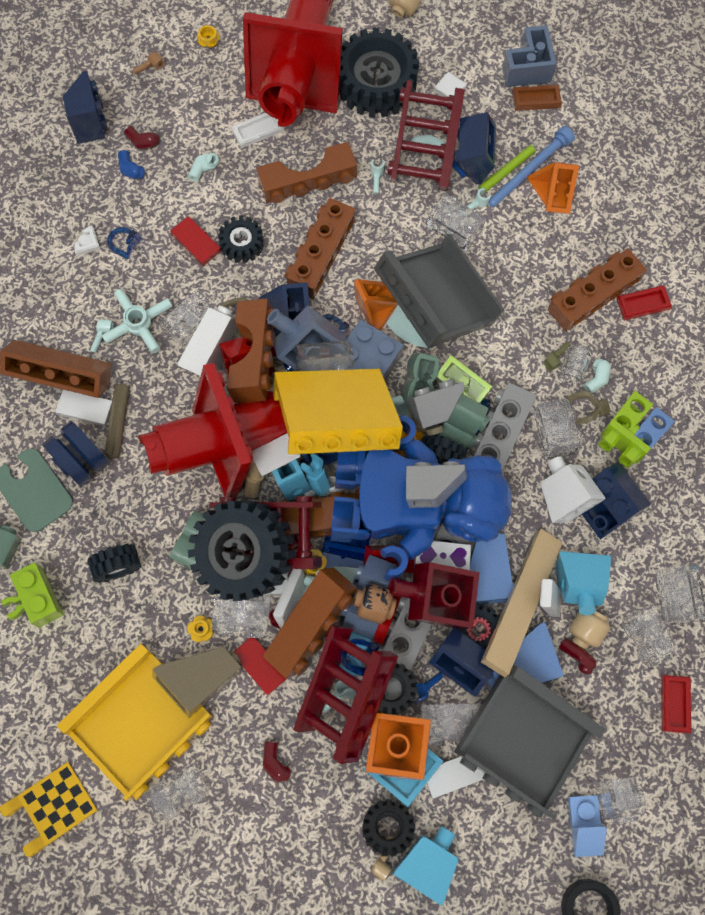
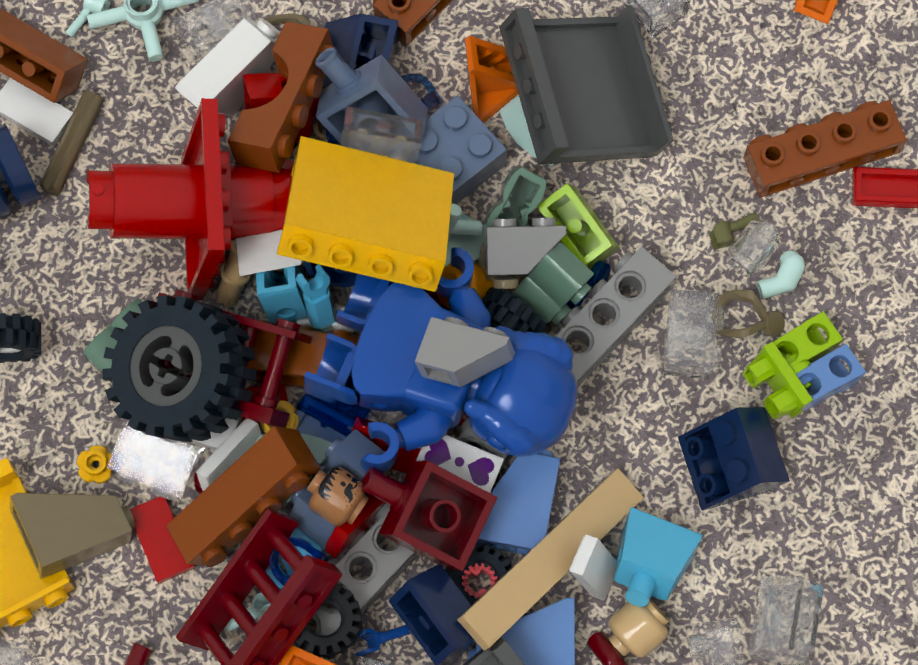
camera: 20 degrees right, 0 degrees up
(569, 491) = (674, 427): white torso -> none

